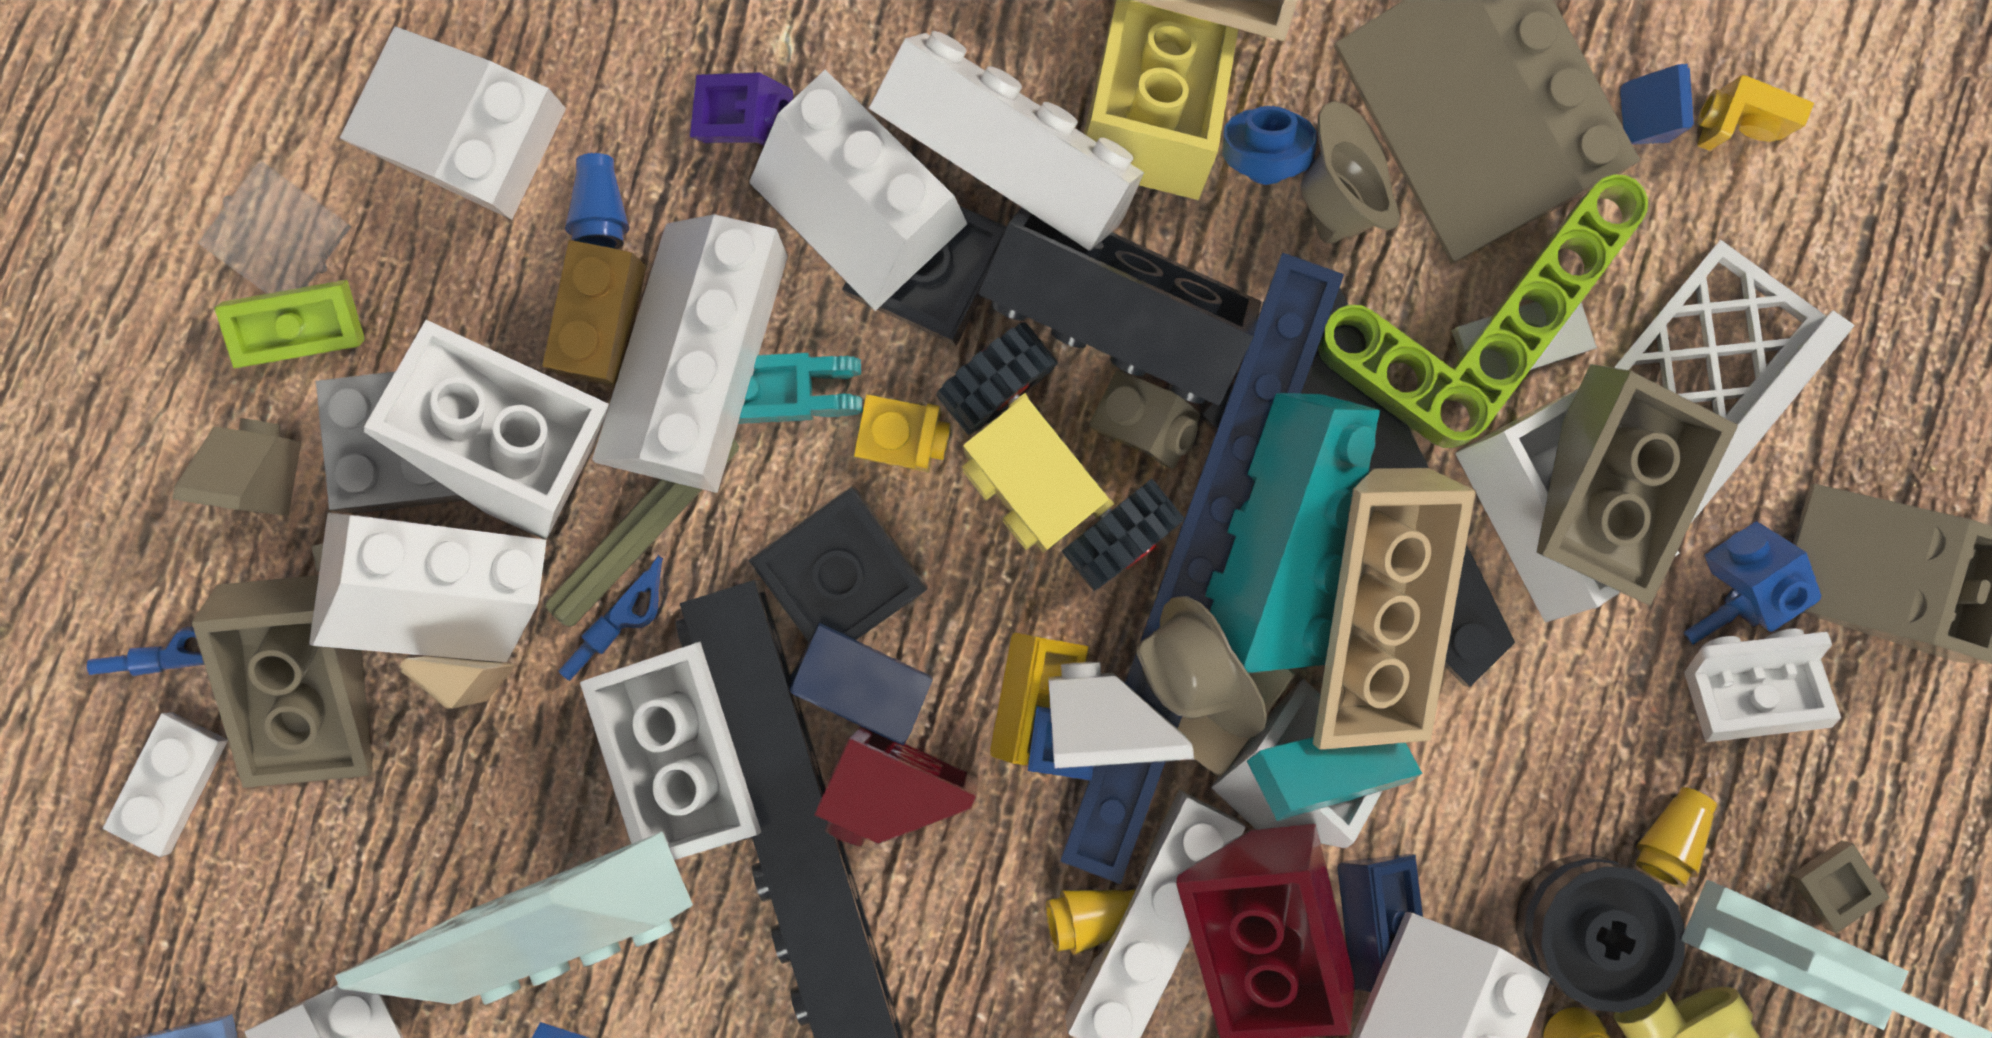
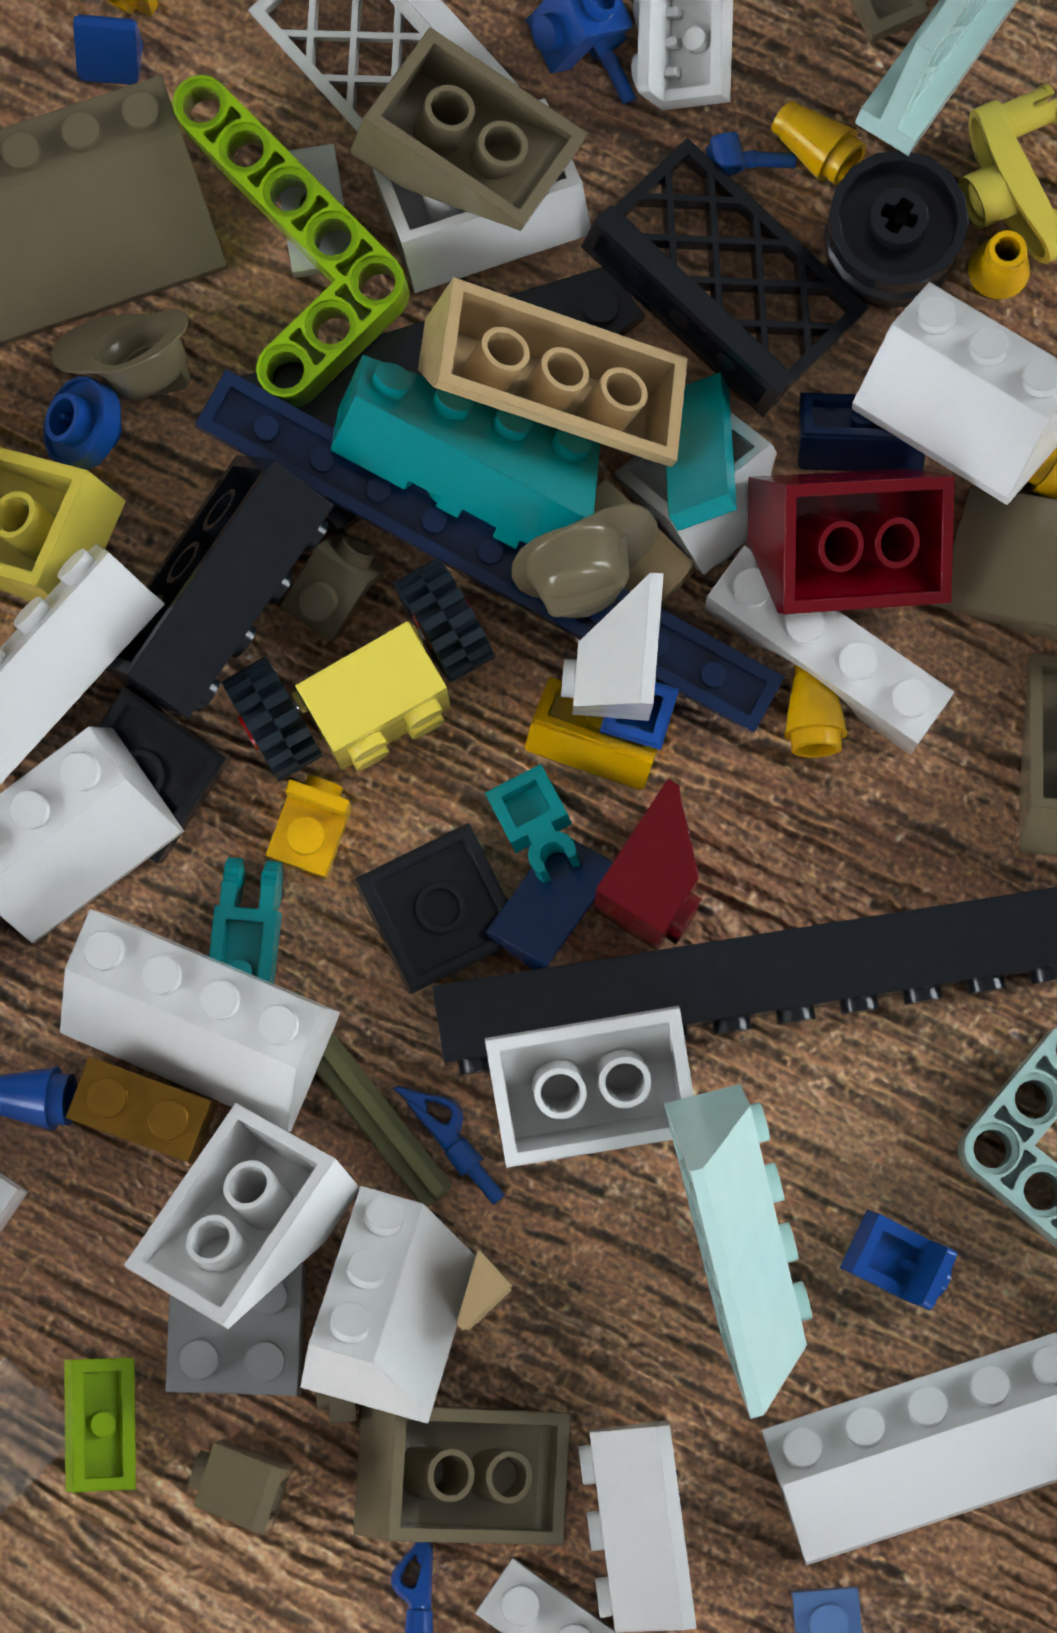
camera: 75 degrees left, 5 degrees down
(254, 865) = (638, 1528): none -> white slope
(942, 651) = (533, 818): none -> teal plate
(1489, 724) = (681, 299): none -> black fence
(1646, 747) = (728, 154): none -> blue hand

